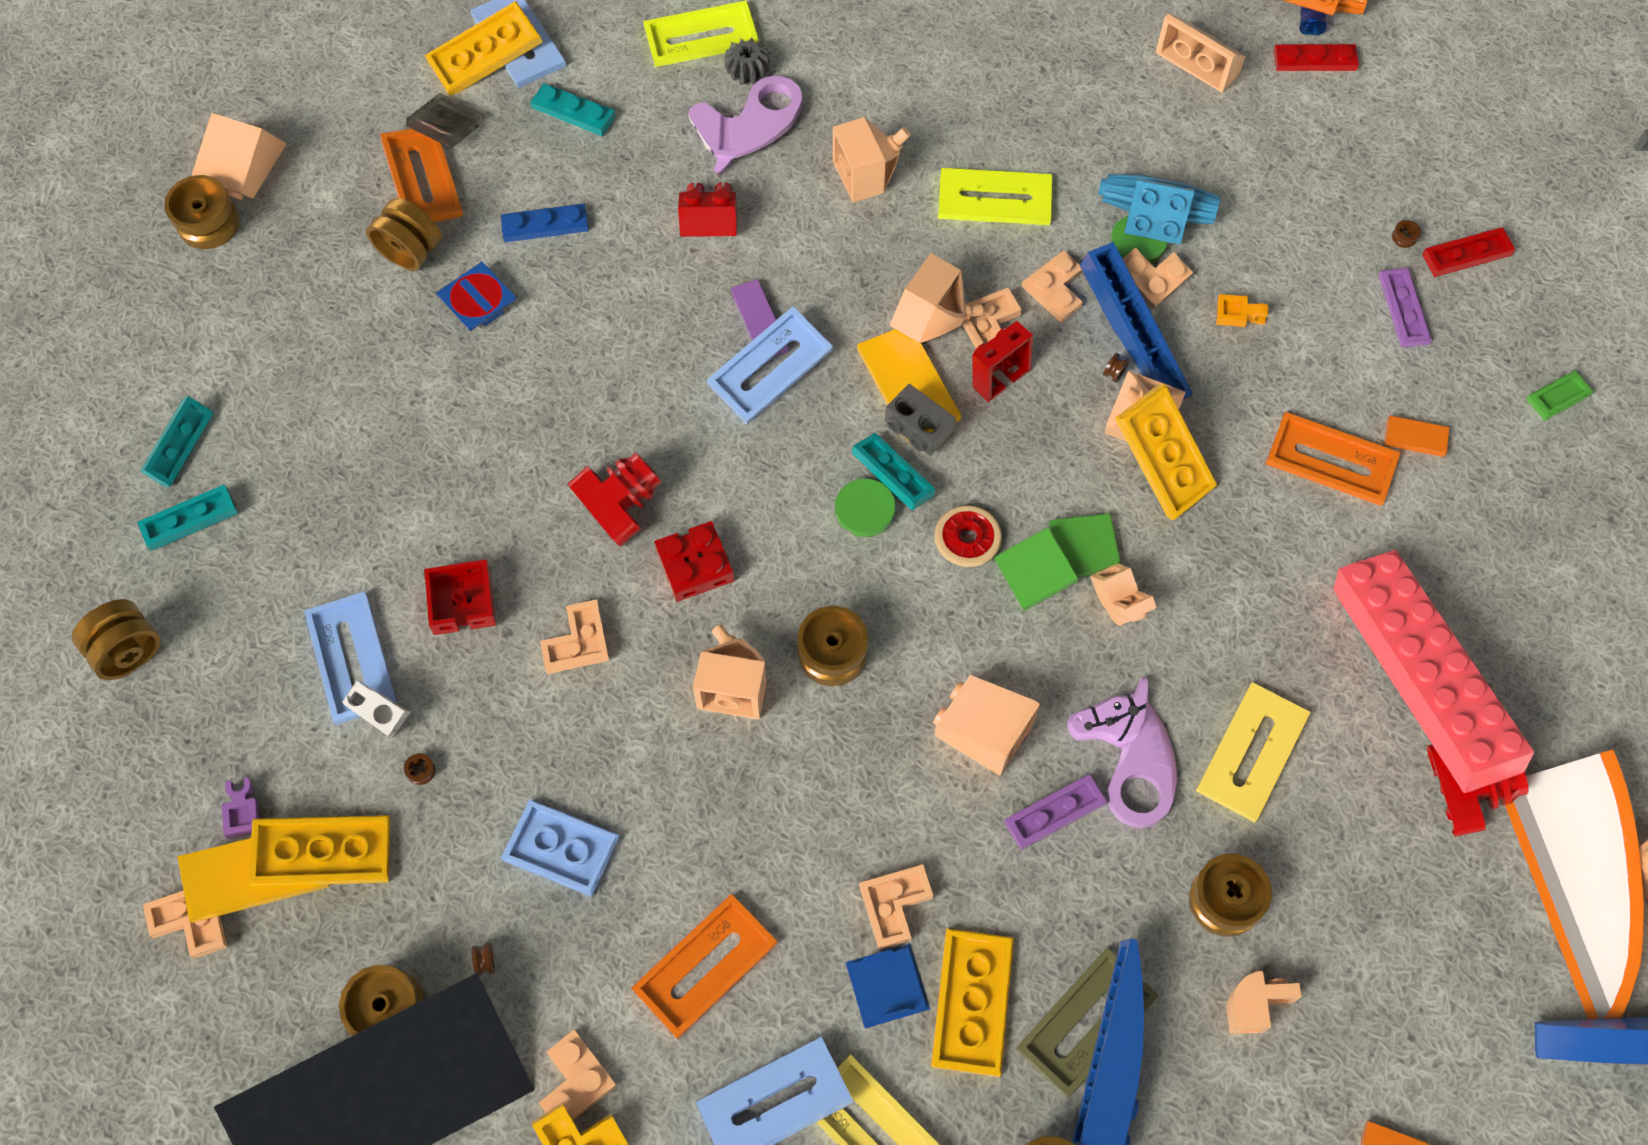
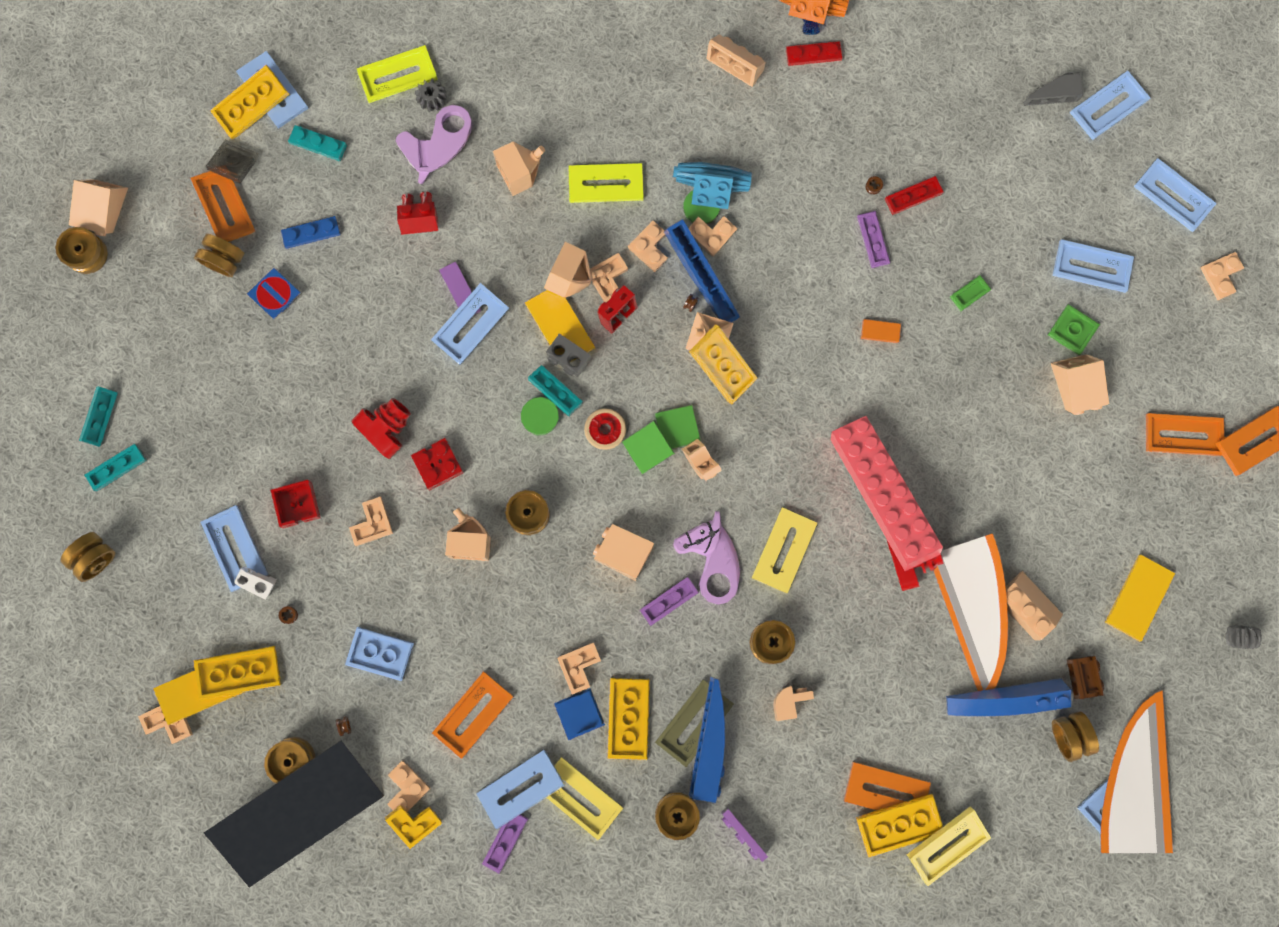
camera: 10 degrees left, 15 degrees up
(240, 811) = (185, 654): medium lavender plate -> none
(1235, 311) = (765, 253): light orange plate -> none
(1376, 458) = (854, 348): orange piece -> none

